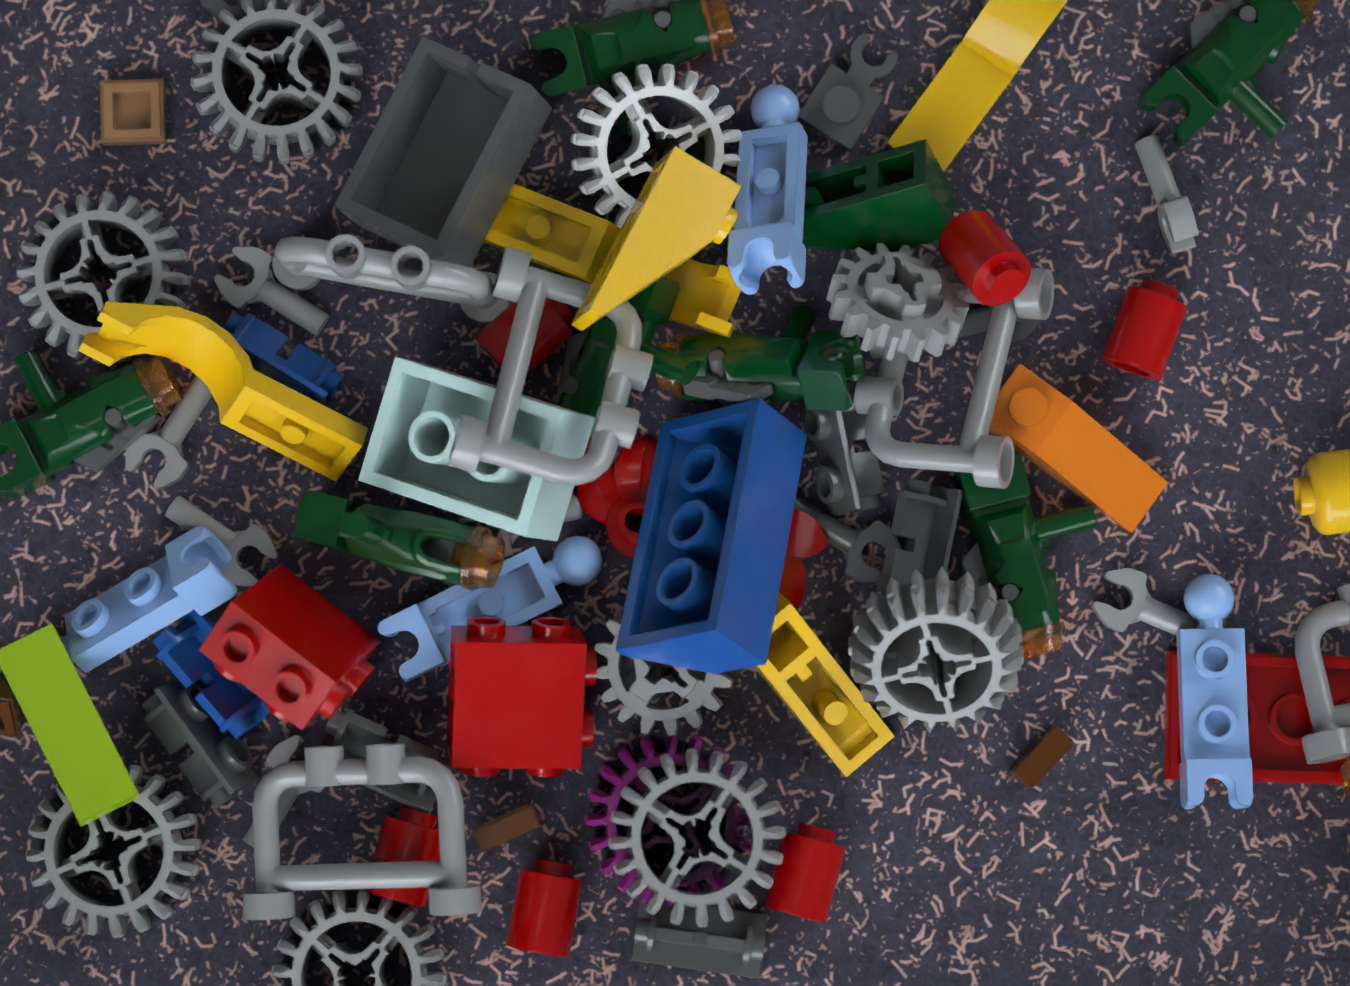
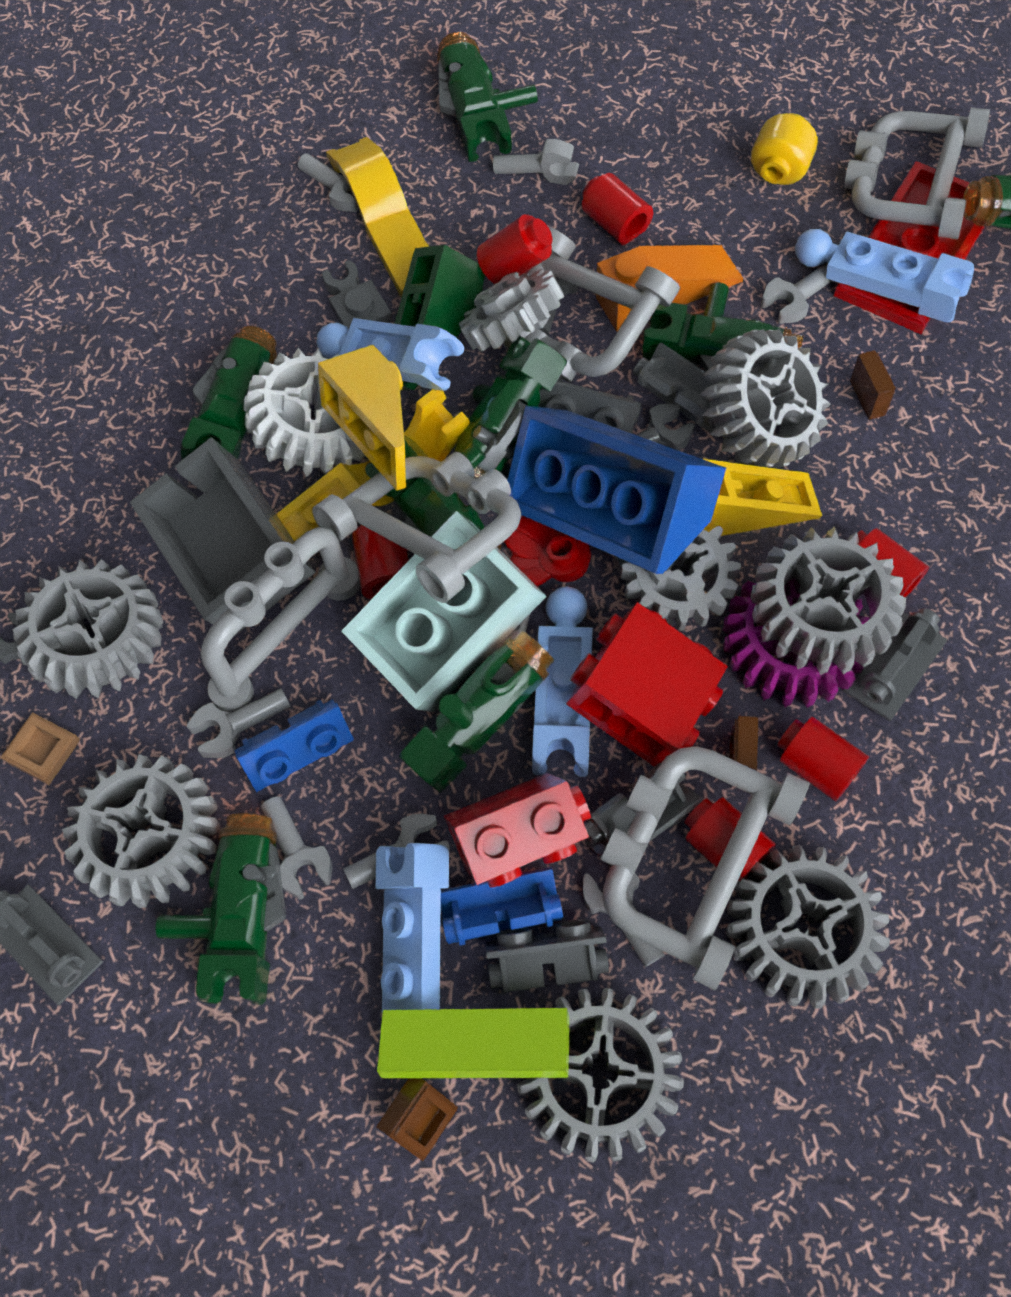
camera: 60 degrees left, 20 degrees down
(244, 396) = (280, 767): yellow piece -> none

